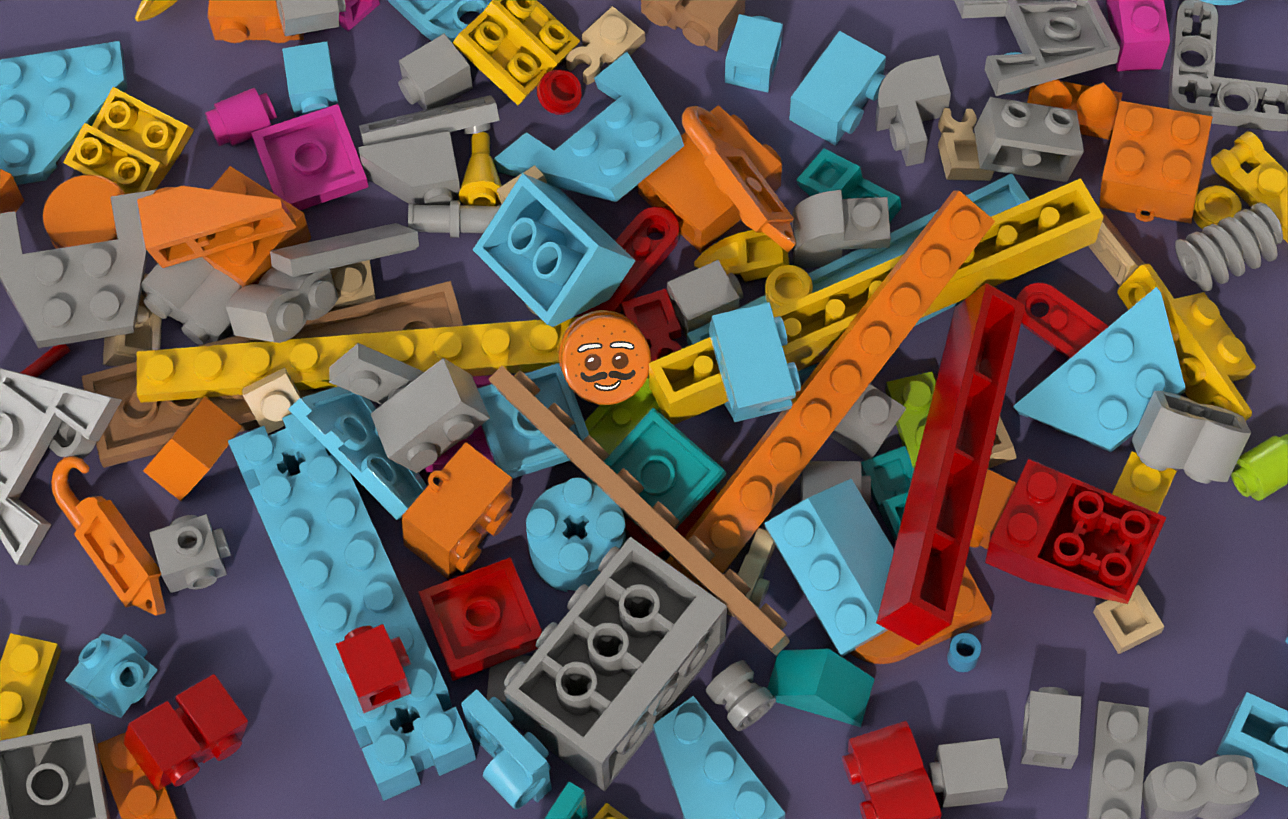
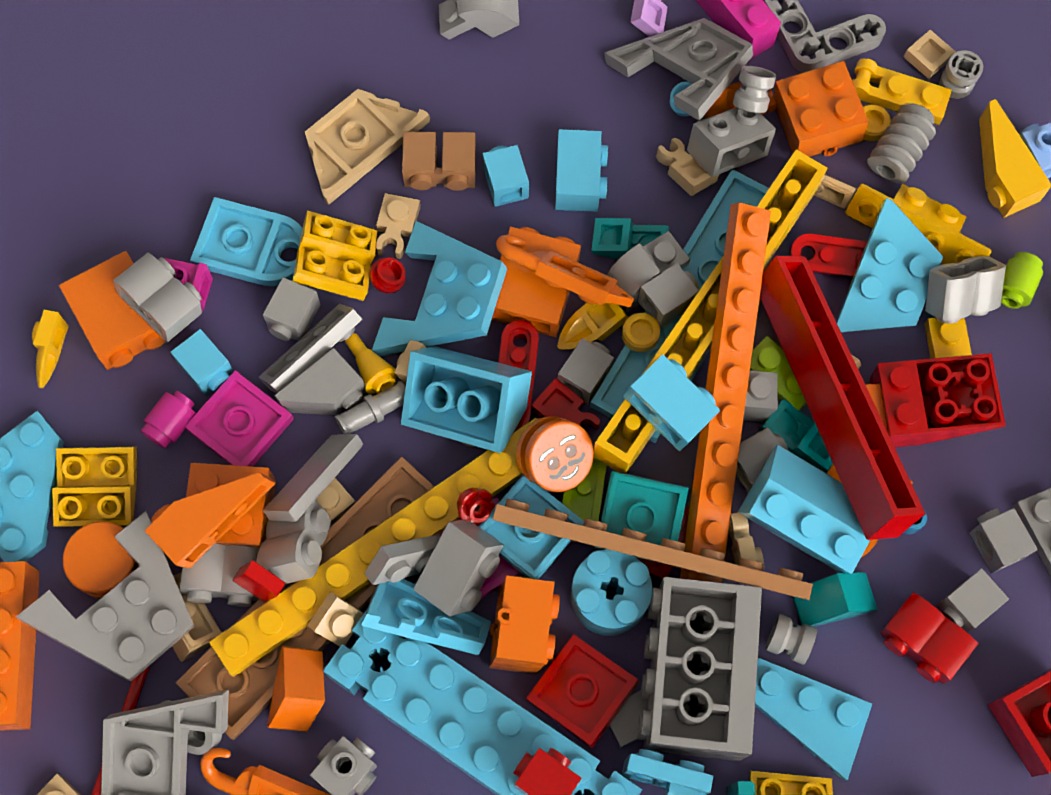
camera: 35 degrees left, 5 degrees up
(220, 317) = (258, 581): none -> red tile
(484, 354) = (469, 500): none -> red plate
(840, 257) = (668, 294): none -> light grey brick
(908, 97) = (630, 153): light grey brick -> none
(1082, 96) = (753, 91): none -> light grey wheel
(1129, 623) = (1002, 441): tan plate -> none

